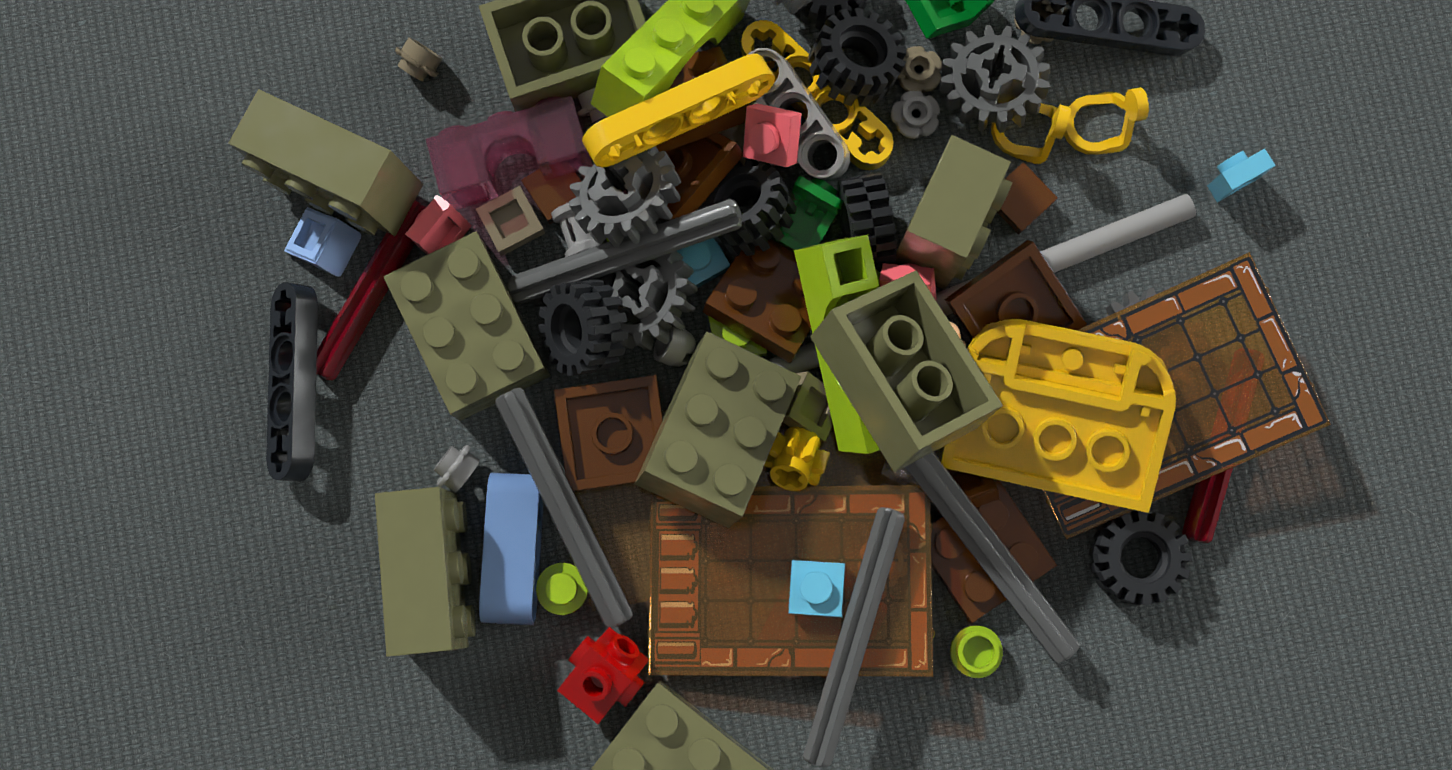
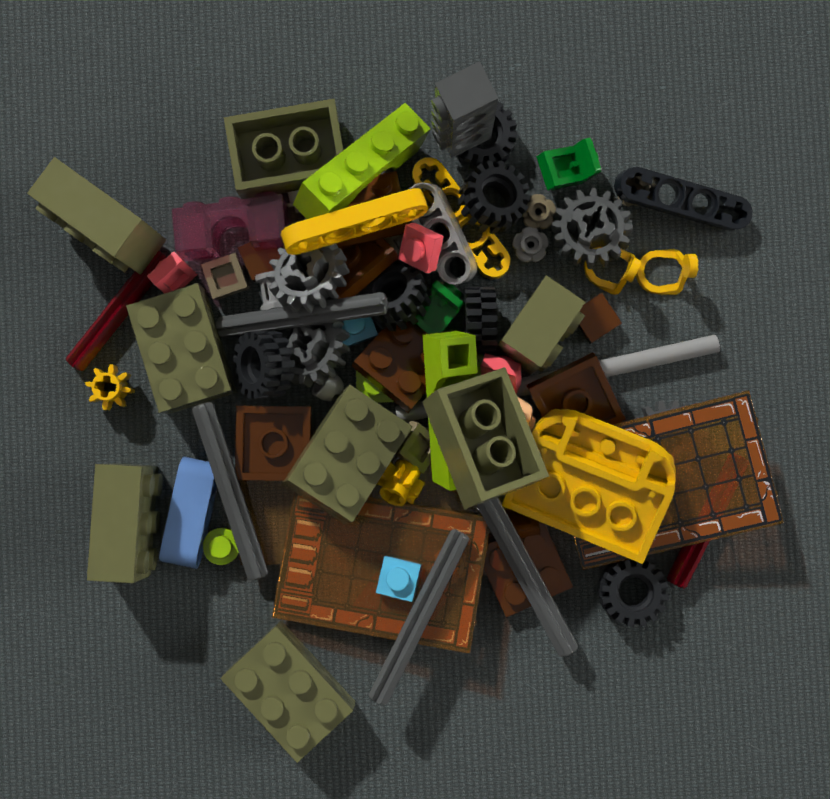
camera: 10 degrees right, 5 degrees up
(292, 382) = (52, 368): black beam -> none
(323, 242) = (89, 270): light blue slope -> none
(383, 405) = (111, 377): none -> yellow gear
(418, 59) = (176, 146): dark tan plate -> none
(455, 467) = (159, 449): light grey plate -> none
(604, 674) = (240, 612): red brick -> none
(976, 651) = (505, 637): lime plate -> none
(1239, 172) = (756, 325): medium azure plate -> none

